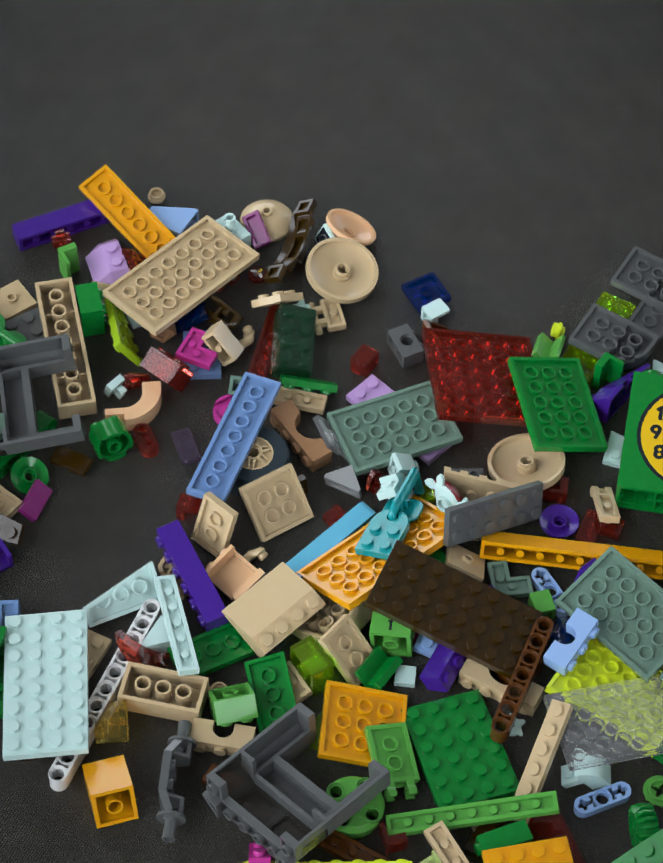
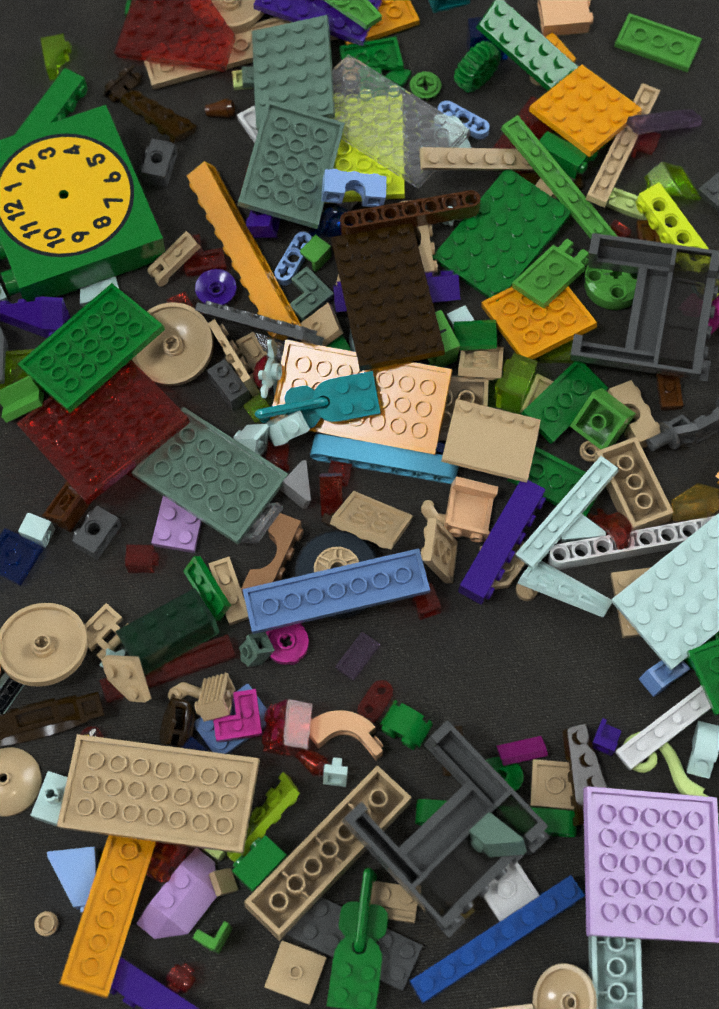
camera: 120 degrees left, 15 degrees up
(257, 229) = (33, 774): magenta tile -> none
(322, 497) = (330, 492): none -> clear red slope
(607, 369) = (17, 336): green panel -> none

